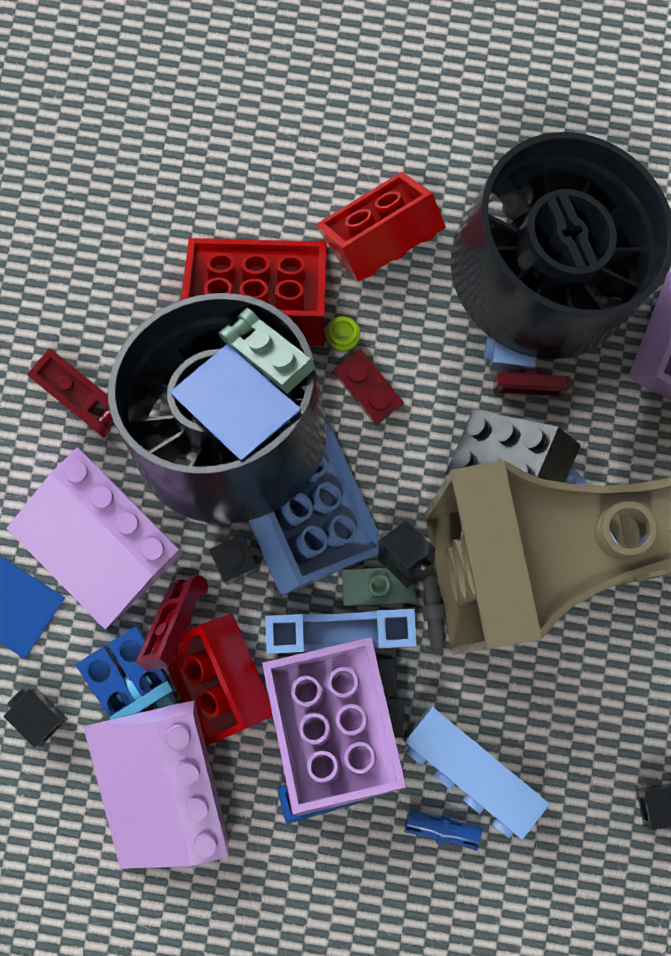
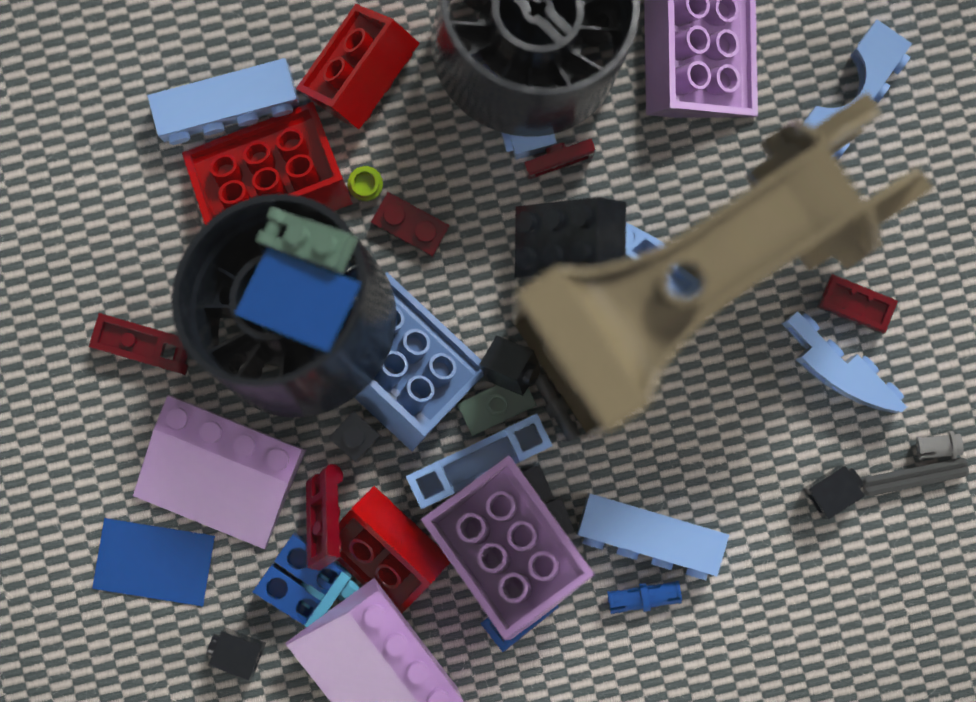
camera: 20 degrees left, 5 degrees up
(246, 207) = (223, 101): none -> light blue brick

